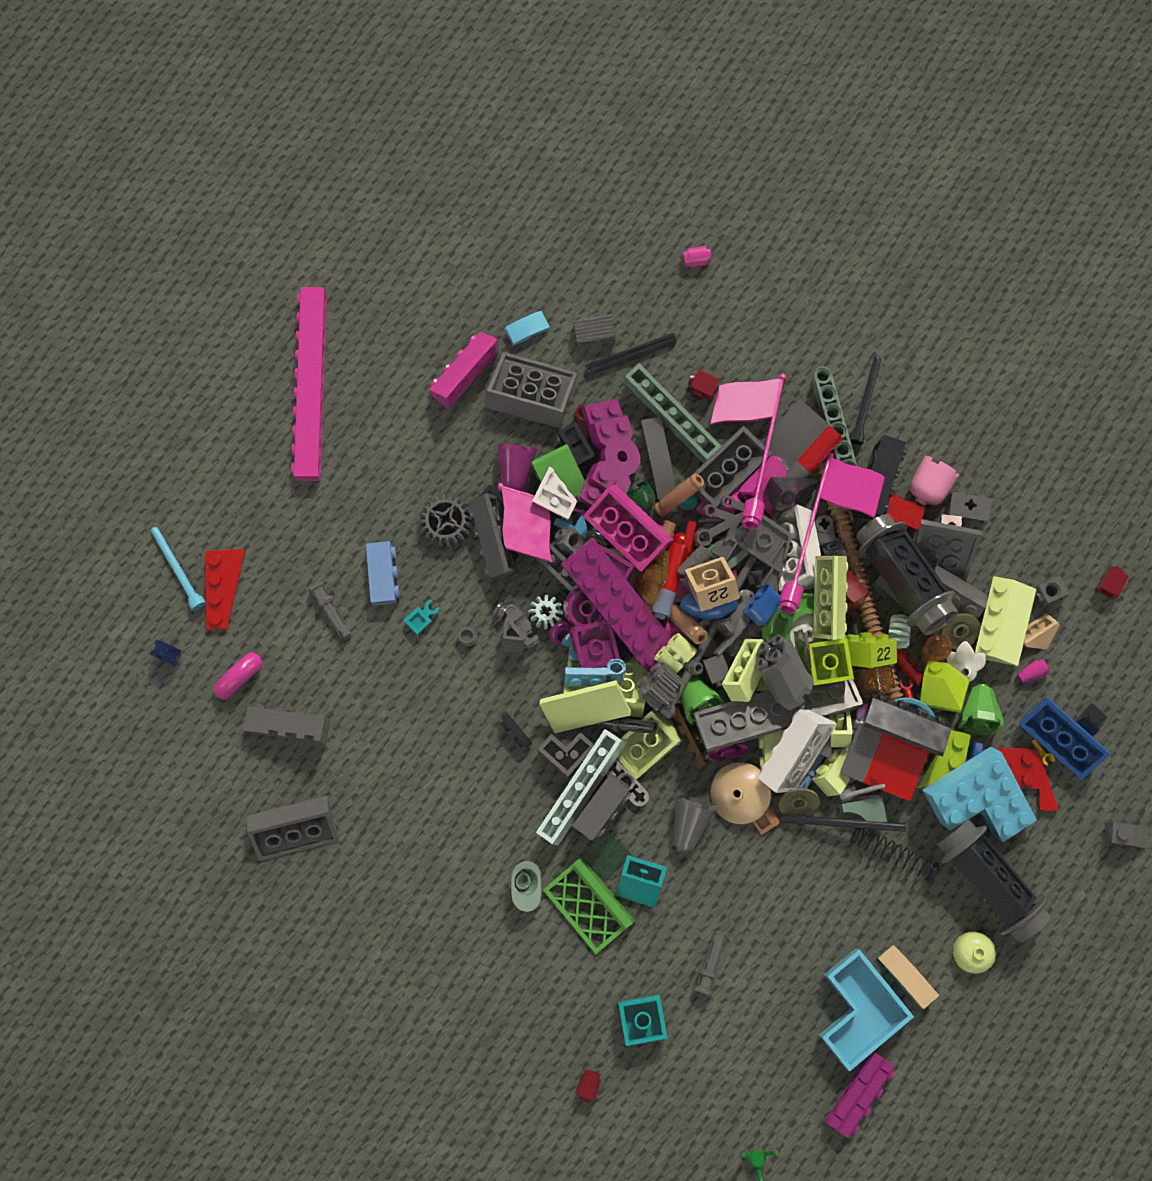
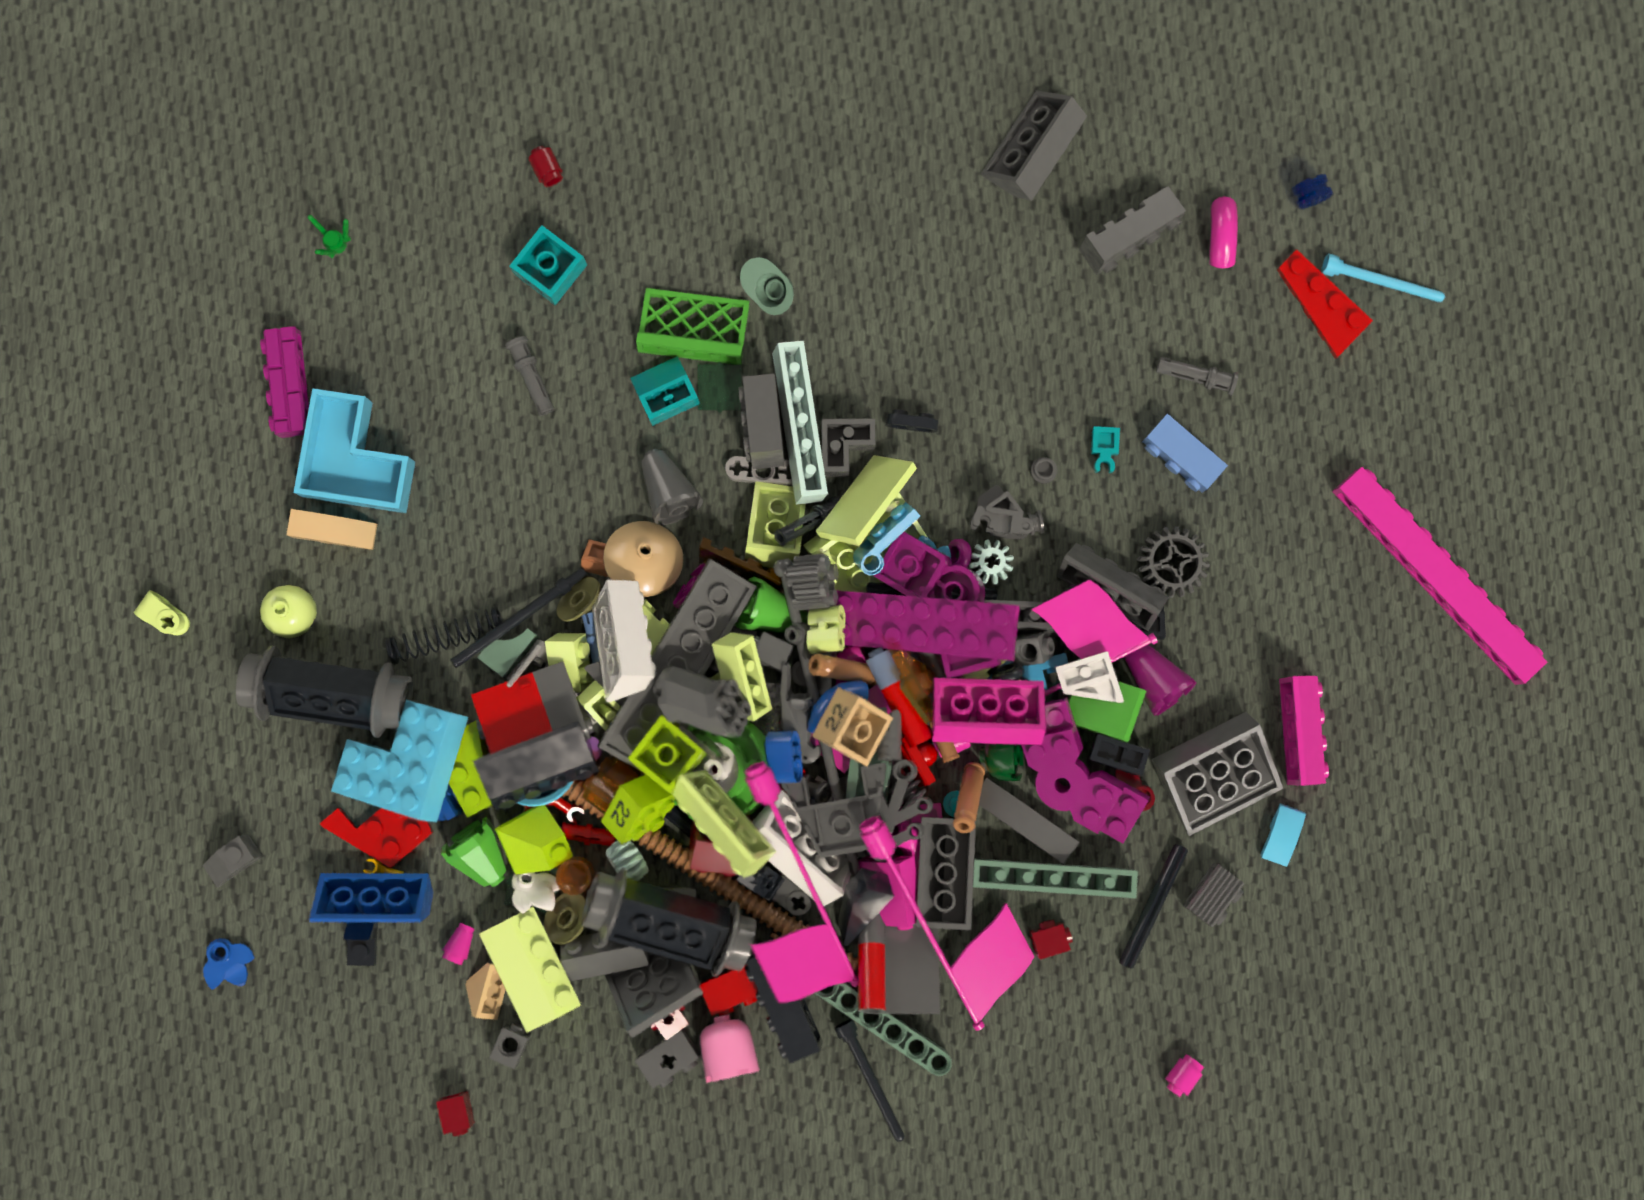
camera: 135 degrees right, 5 degrees up
(1052, 1021) = (159, 612): none -> yellowish green piece

